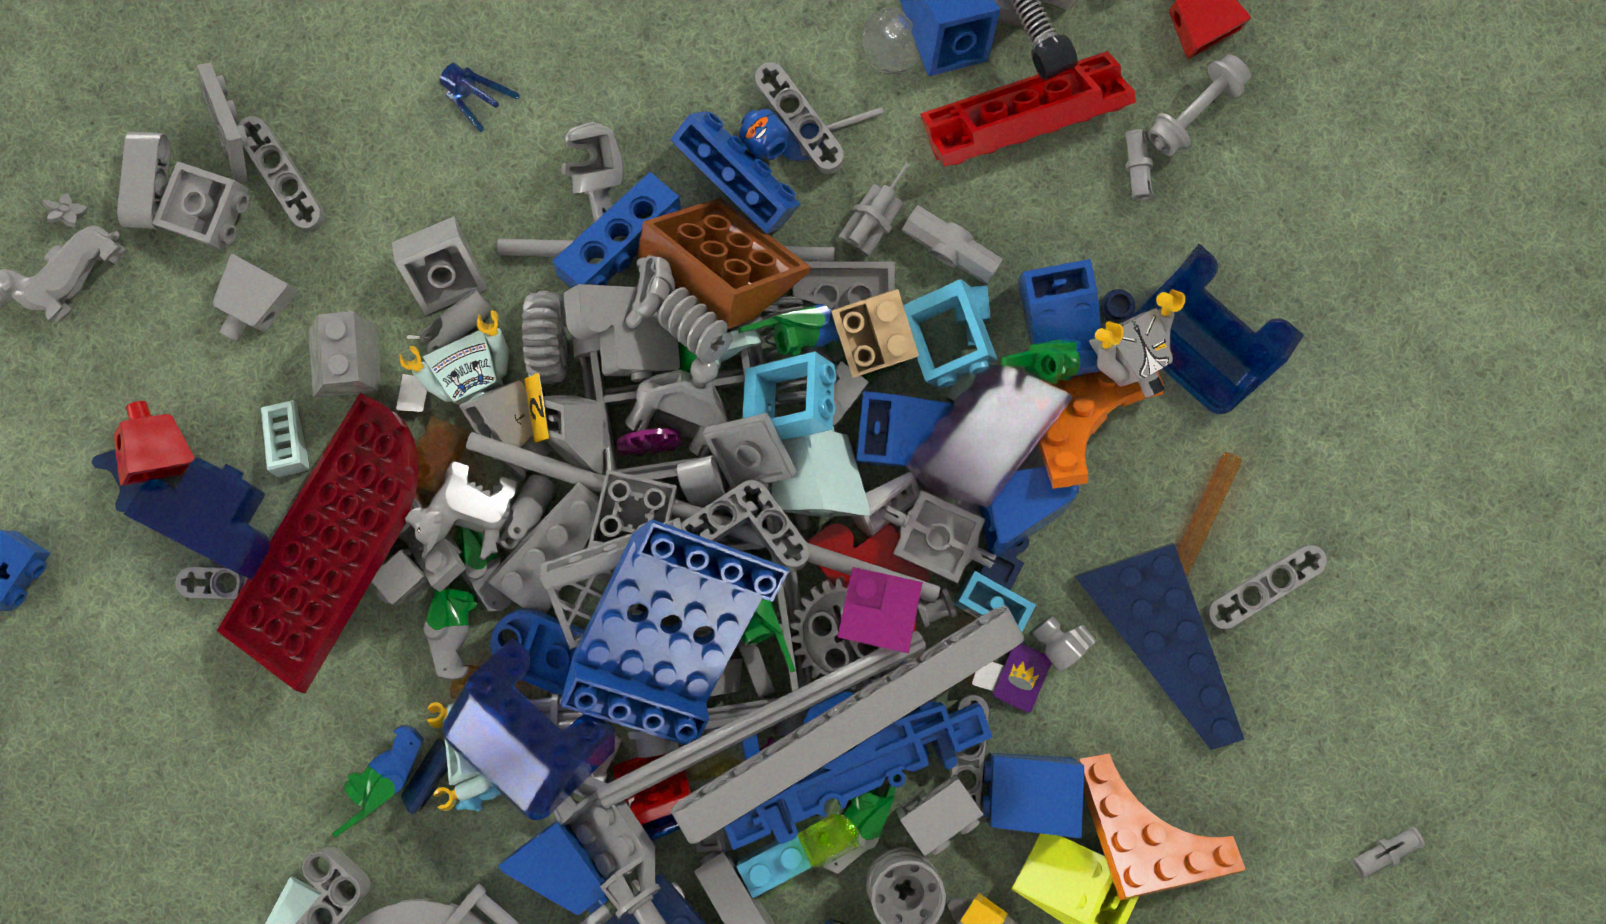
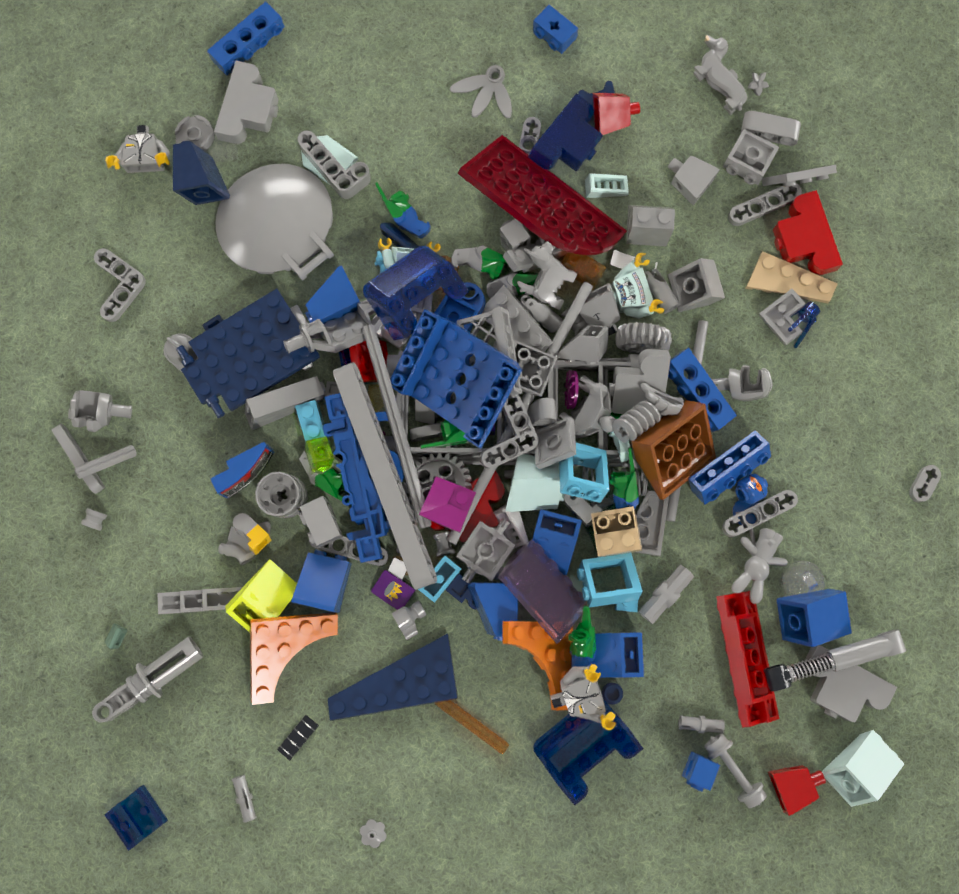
camera: 105 degrees right, 5 degrees down
(127, 667) = (489, 87): none -> light grey plant
(326, 97) = (807, 236): none -> red brick
(405, 124) = (780, 276): none -> tan wing
(471, 128) = (778, 316): none -> light grey plate
(536, 408) = (599, 326): yellow sticker -> none
(872, 217) = (690, 548): light grey piece -> none
(885, 110) = (757, 566): none -> light grey animal
(1213, 155) = (700, 772): none -> blue brick
(1268, 591) = (416, 755): light grey beam -> none
(1277, 785) = (297, 737): none -> black sticker
(1390, 639) = (375, 828): none -> light grey plant

